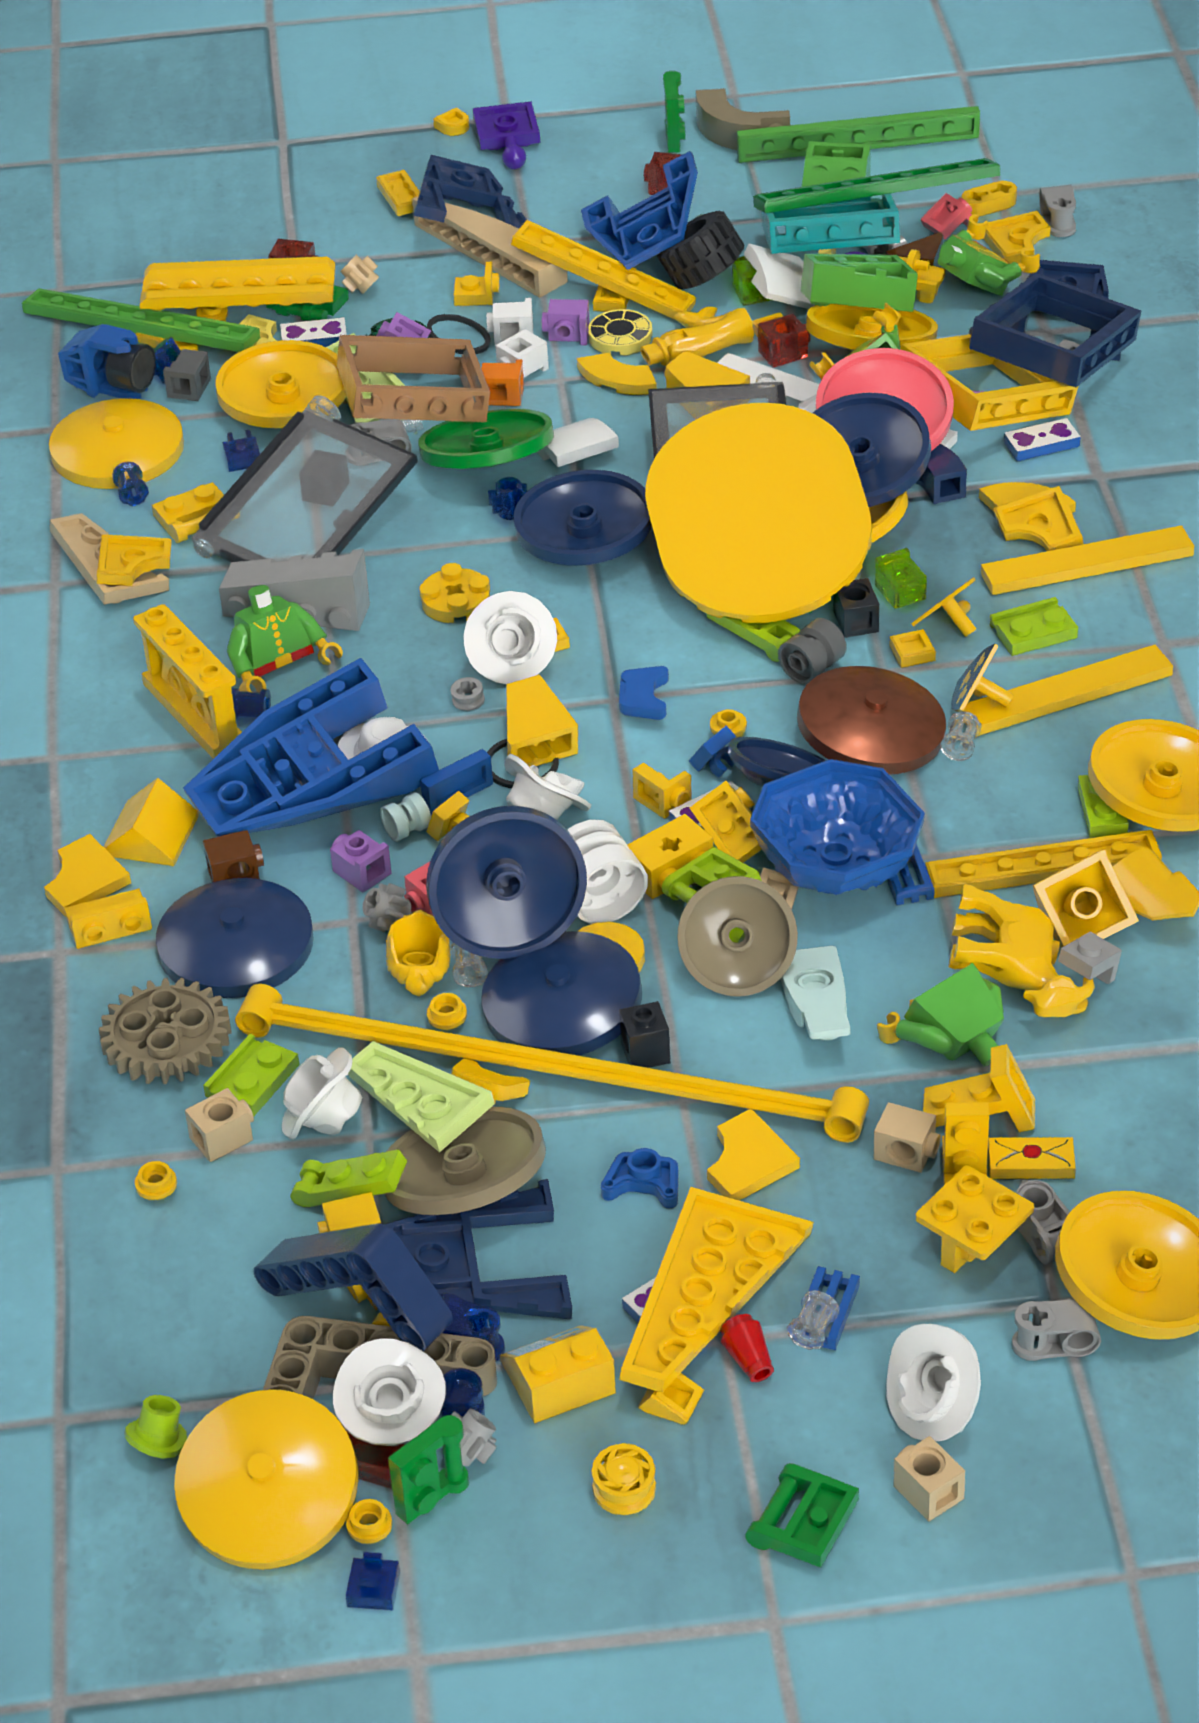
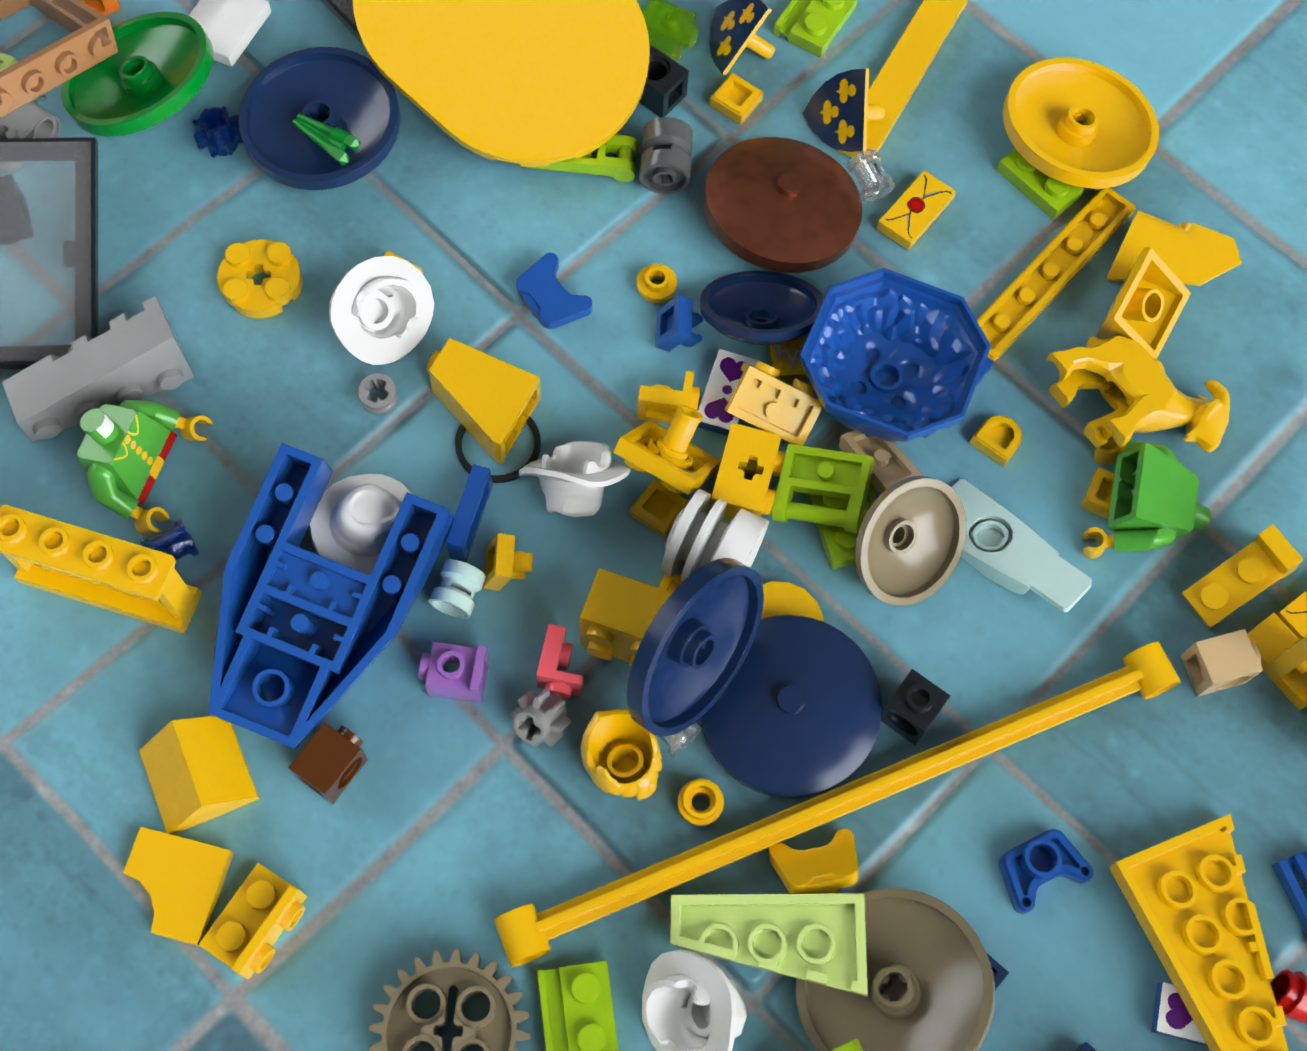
camera: 45 degrees left, 25 degrees up
(235, 936) = (407, 853): dark blue dish -> none
(573, 526) = (330, 139): none -> green piece
(621, 806) = (669, 452): none -> yellow plate
(750, 1157) = (1110, 773): yellow tile -> none
(888, 936) = (998, 438): none -> yellow tile
(978, 776) = (916, 210): none -> yellow tile
(1091, 957) = (1198, 360): light grey bracket -> none

